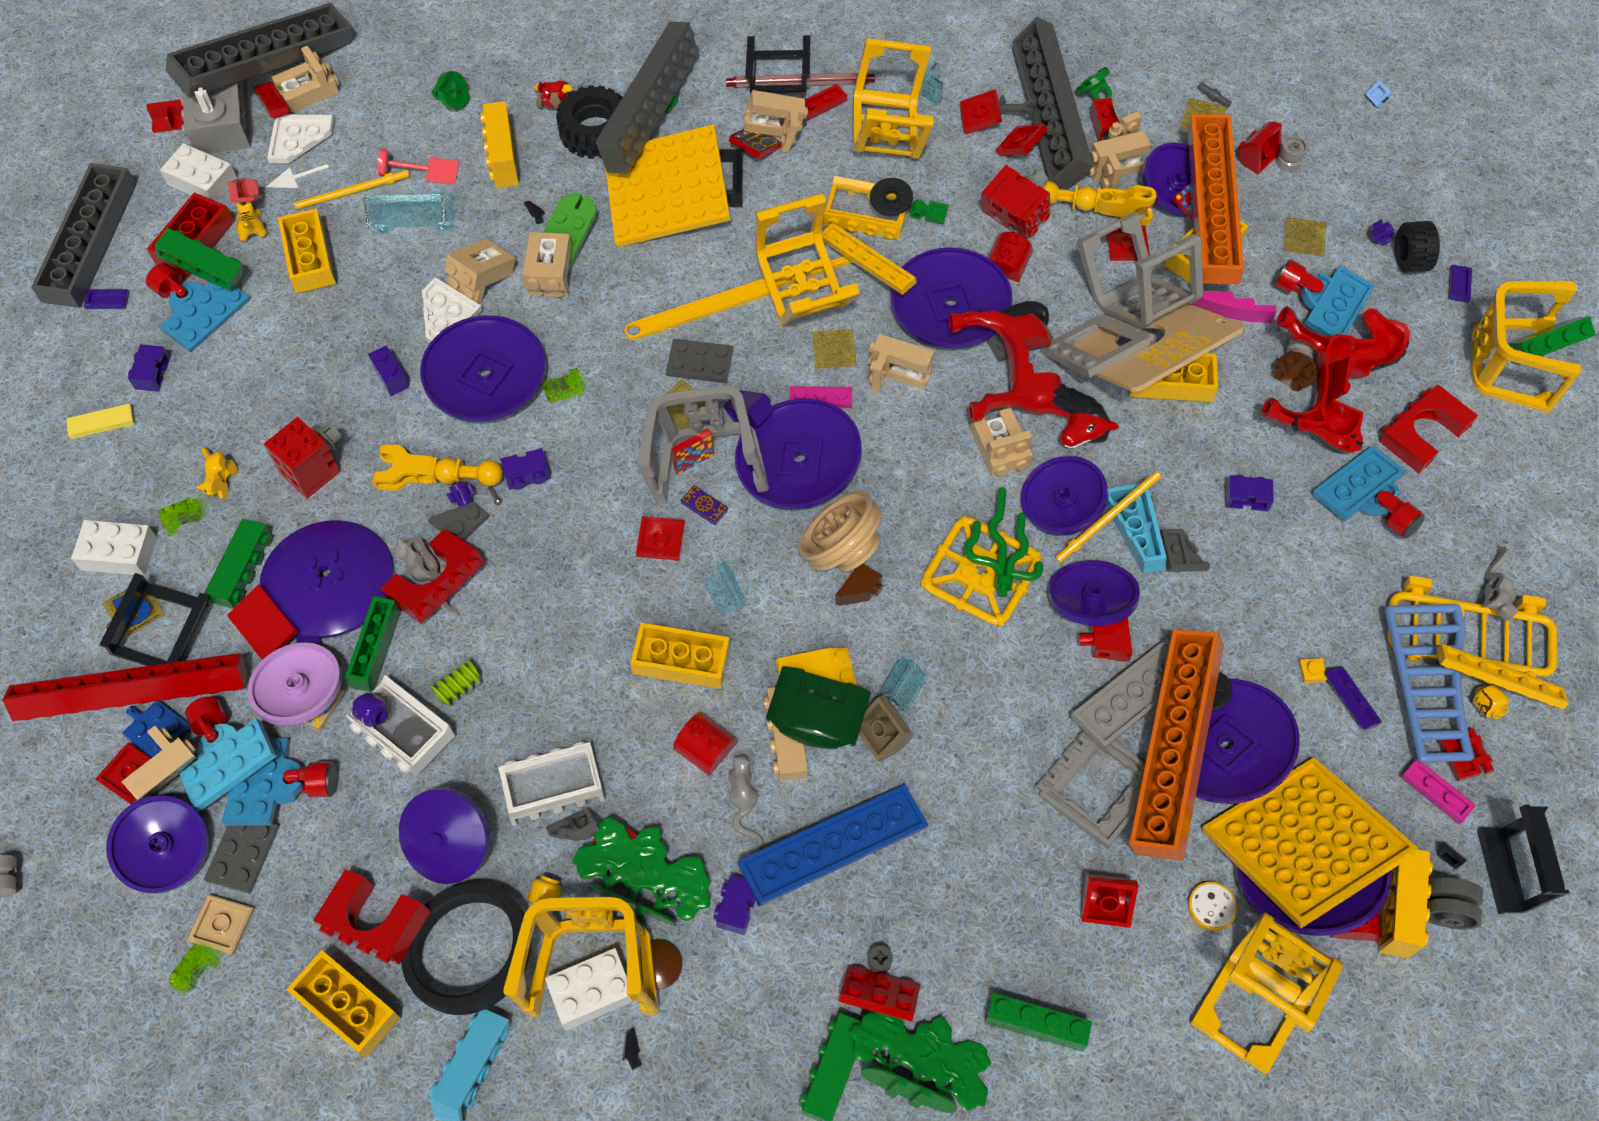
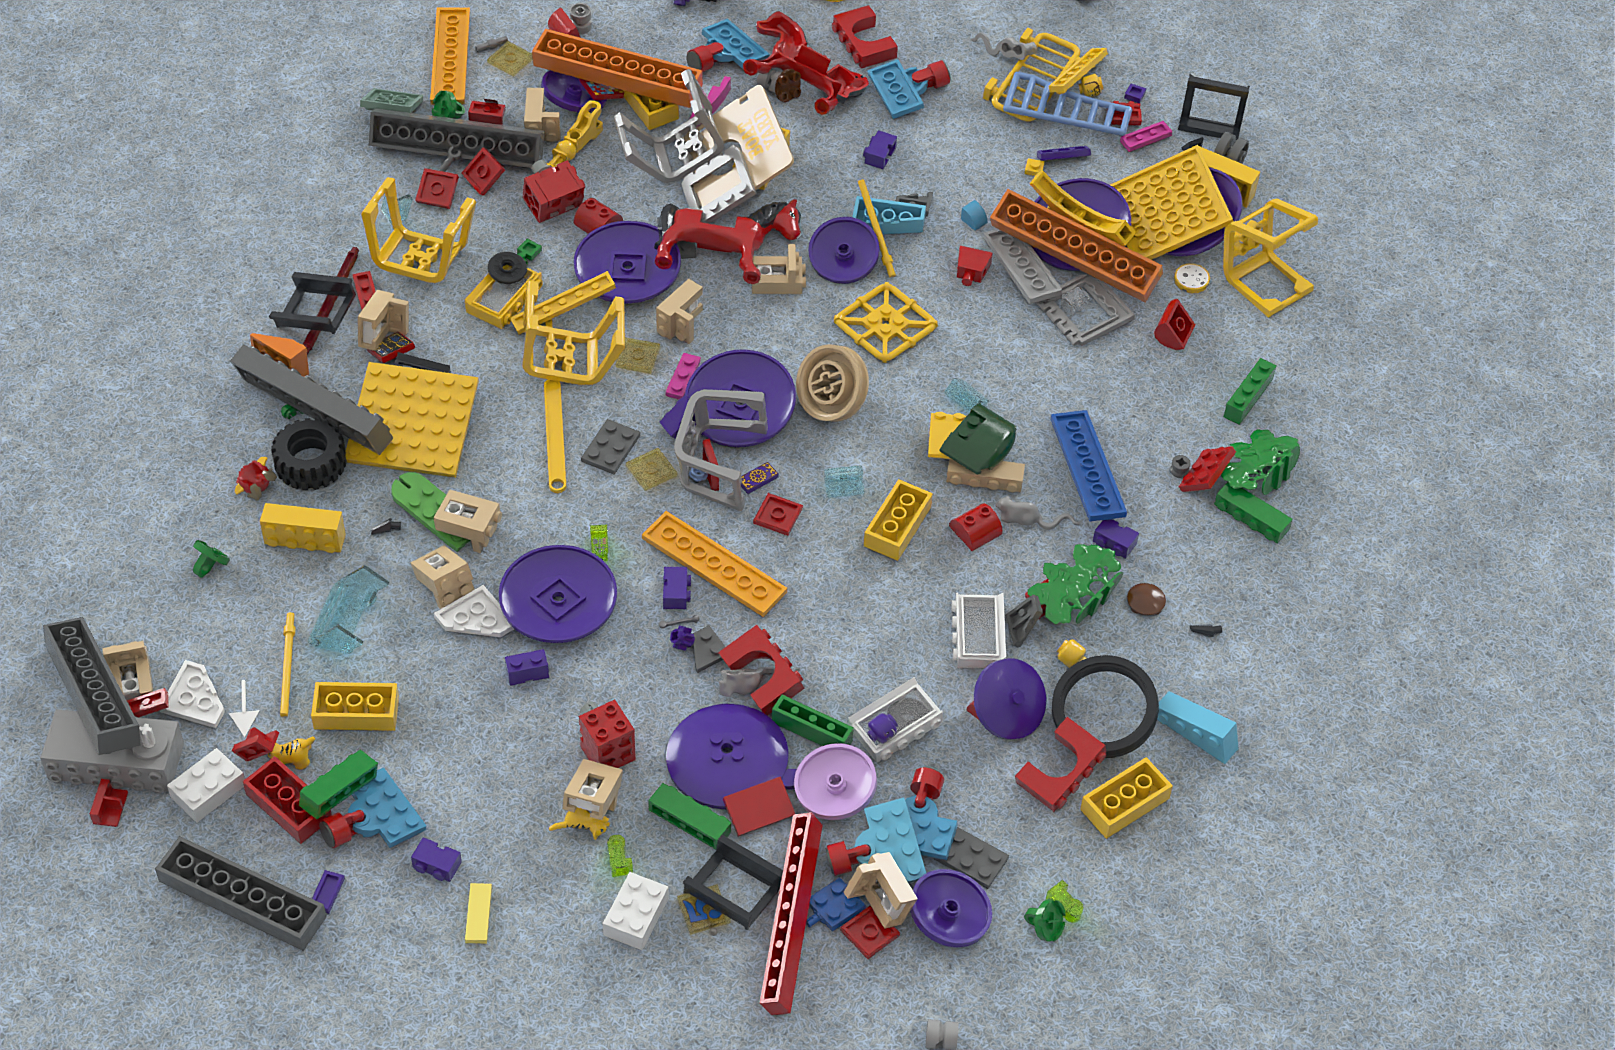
camera: 75 degrees left, 10 degrees down
(156, 952) = (1047, 919): none -> green tile
(220, 924) = (1030, 881): tan tile -> none
(228, 469) = (593, 789): none -> tan brick
(427, 470) = (654, 643): yellow piece -> none
(438, 170) = (296, 589): coral piece -> none
(456, 683) = (868, 675): lime piece -> none
(570, 497) = (714, 563): none -> light orange plate
(587, 915) = (1119, 593): yellow windscreen -> none
(589, 989) = (1156, 639): white brick -> none
(700, 65) = (284, 350): none -> orange slope
(860, 586) = (876, 396): reddish brown slope -> none
(884, 729) = (1008, 406): dark tan brick -> none
(1004, 570) = (889, 302): green plant -> none
(1078, 37) = (391, 100): none -> sand green plate
(1094, 592) = (934, 258): dark purple dish -> none
(1122, 247) = (610, 144): red tile -> none
(1128, 125) = (512, 107): tan plate -> none
(1177, 66) = (450, 52): none -> light orange plate
(1193, 618) = (974, 215): none -> dark azure brick
(1221, 741) = (1067, 206): none -> yellow arch
(1304, 236) = (659, 42): clear yellow tile -> none
(1510, 759) = (1135, 93): none -> dark purple plate

